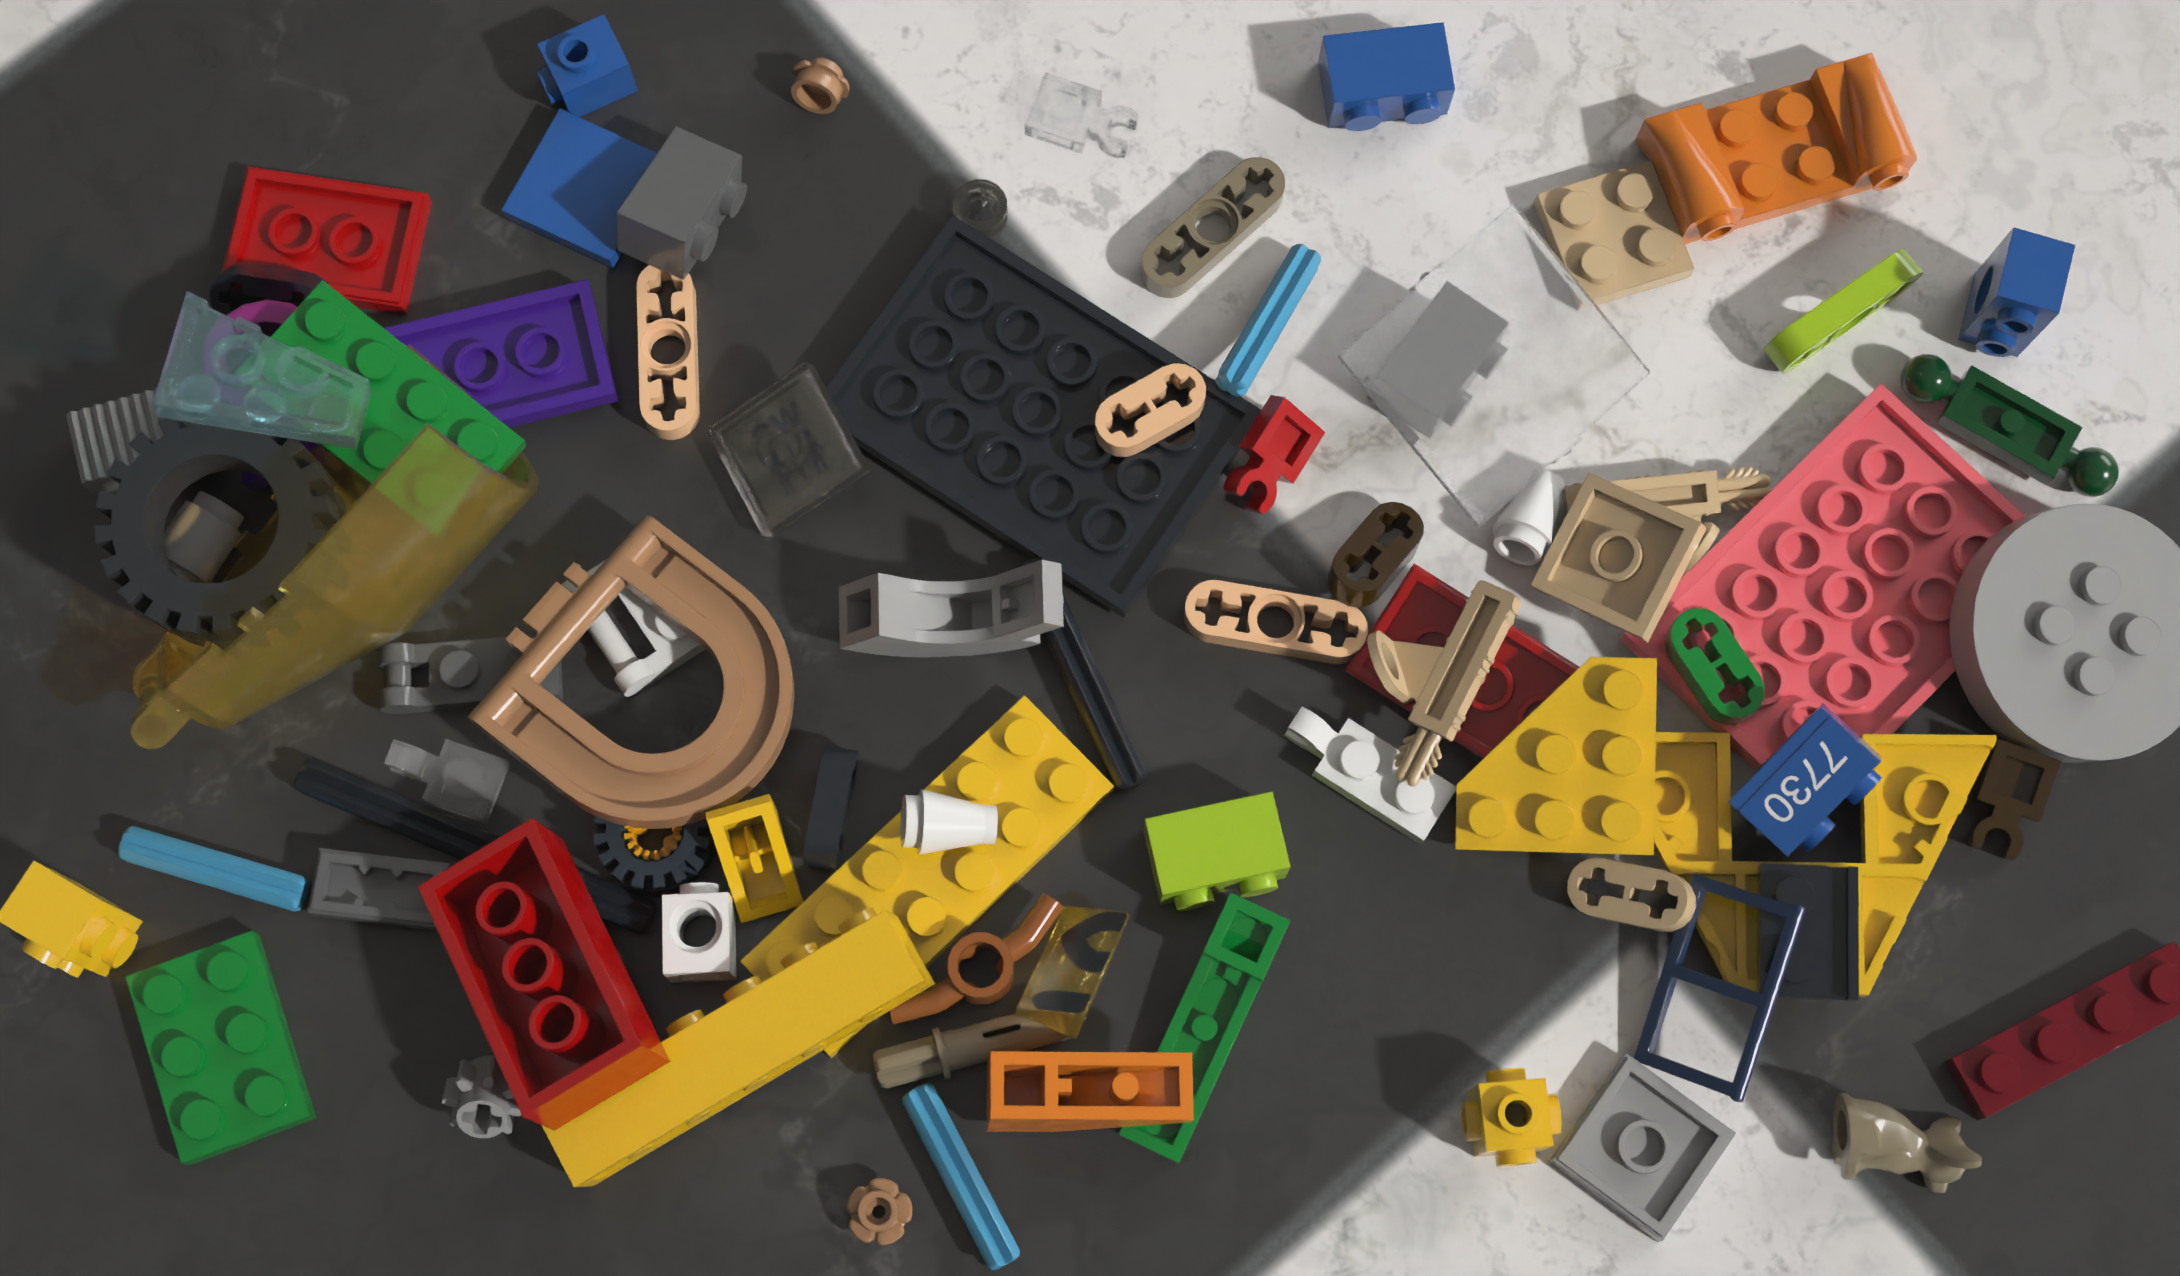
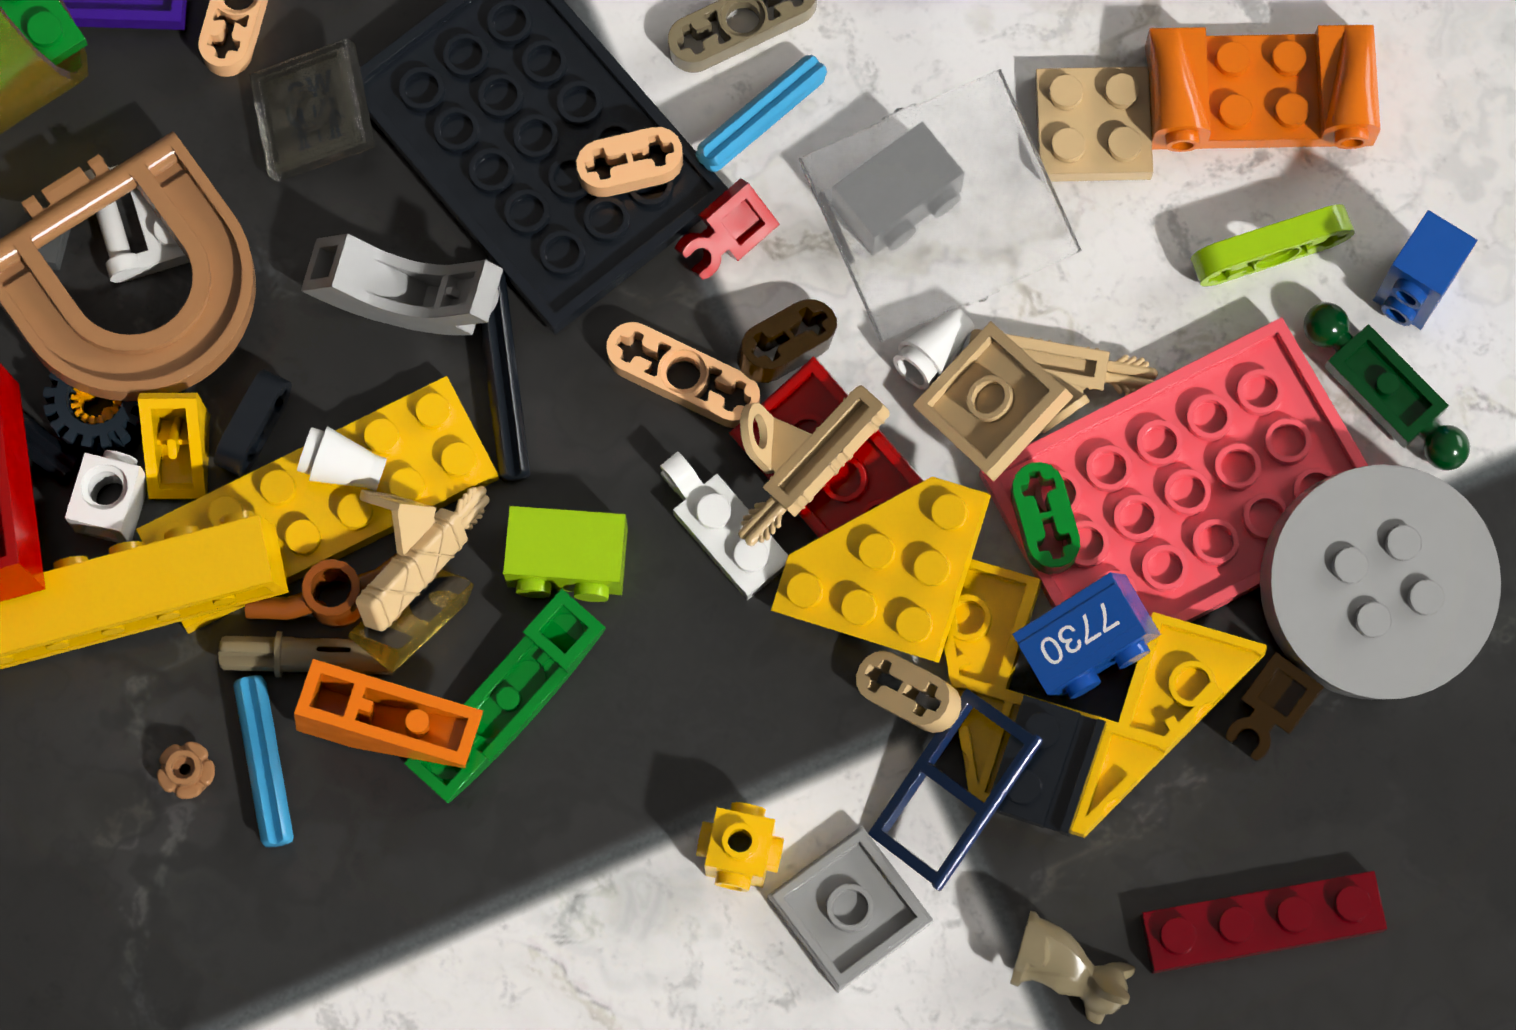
camera: 20 degrees right, 0 degrees up
(1066, 884) = (423, 548): none -> tan piece

